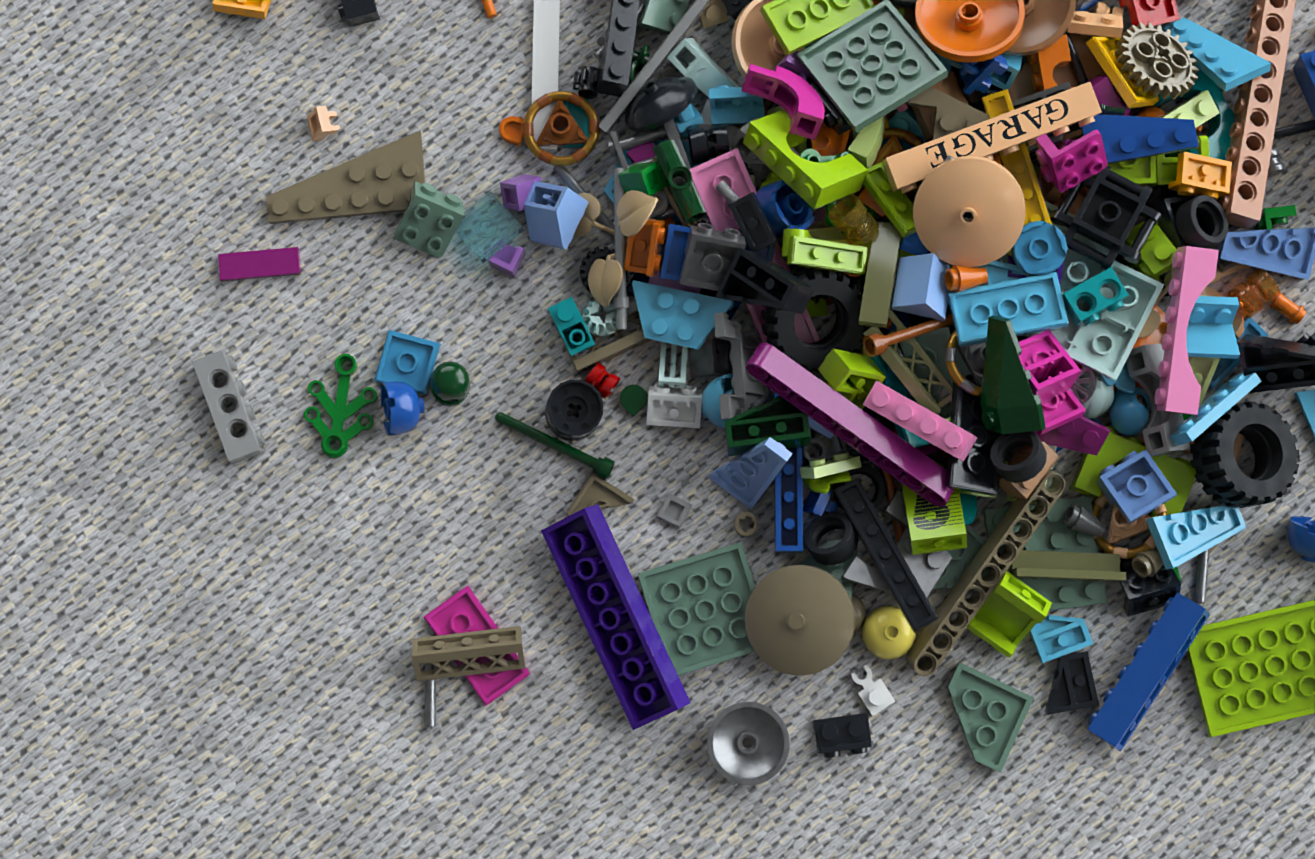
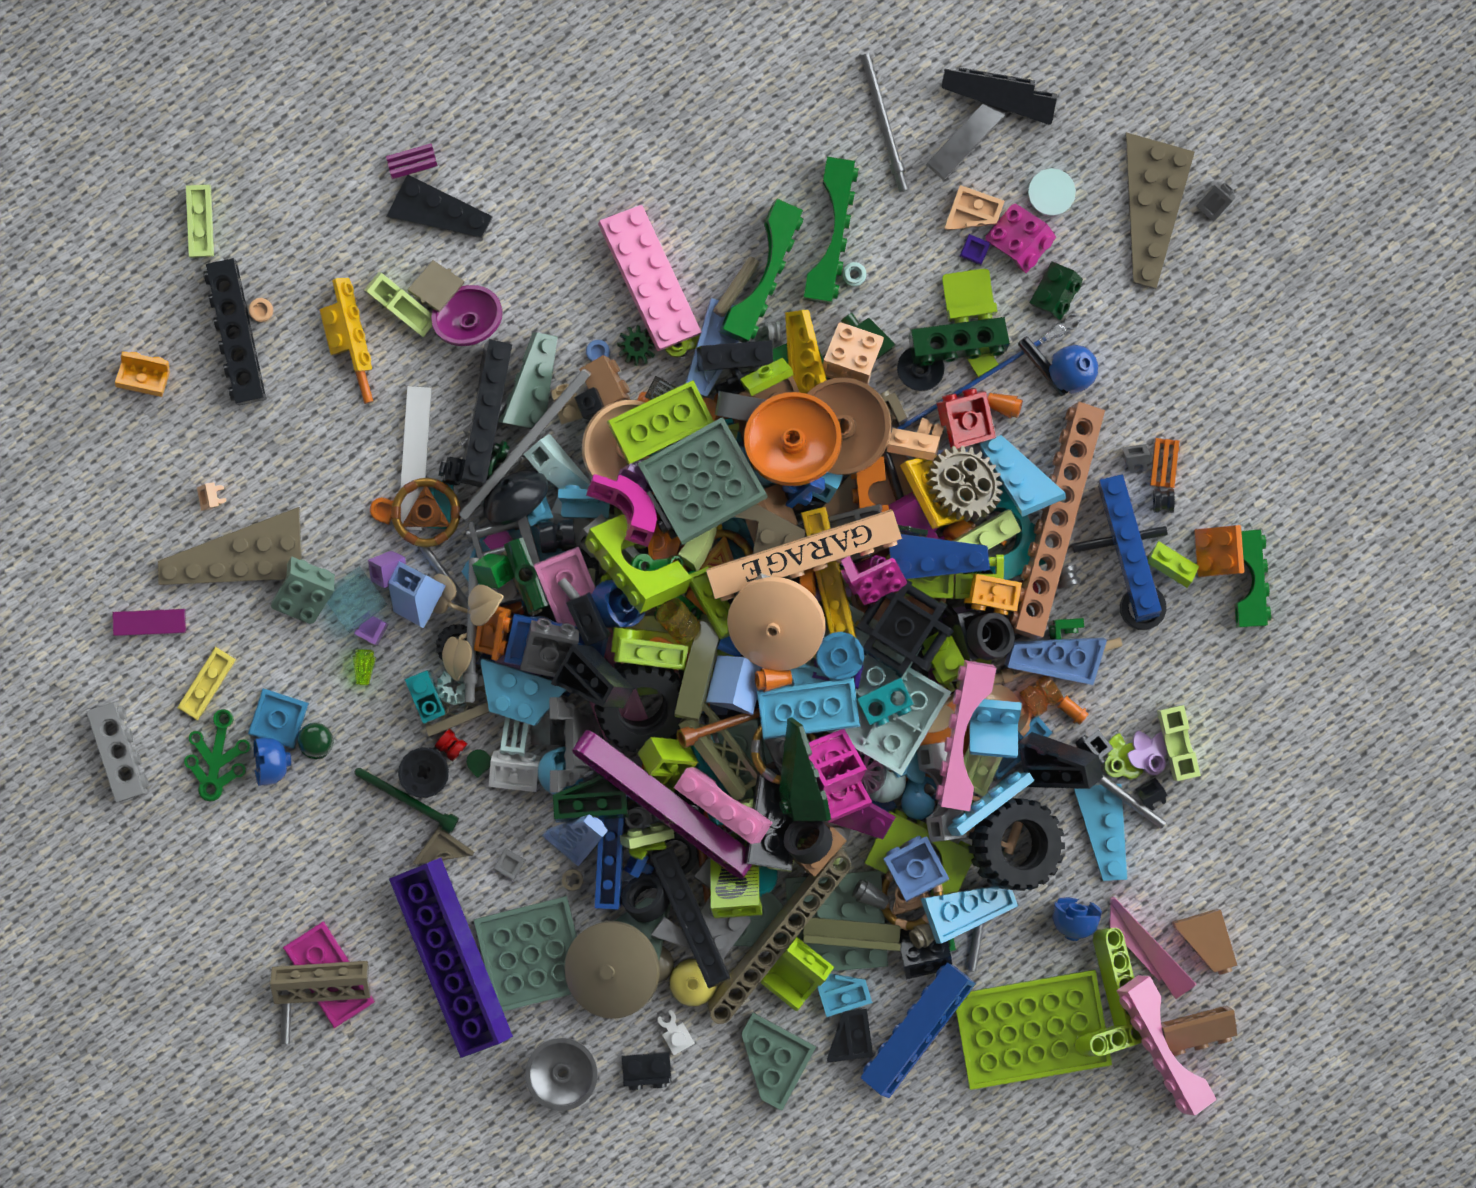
camera: 10 degrees right, 5 degrees up
(326, 328) = (206, 683): none -> light yellow tile
(500, 299) = (363, 665): none -> clear neon green cone

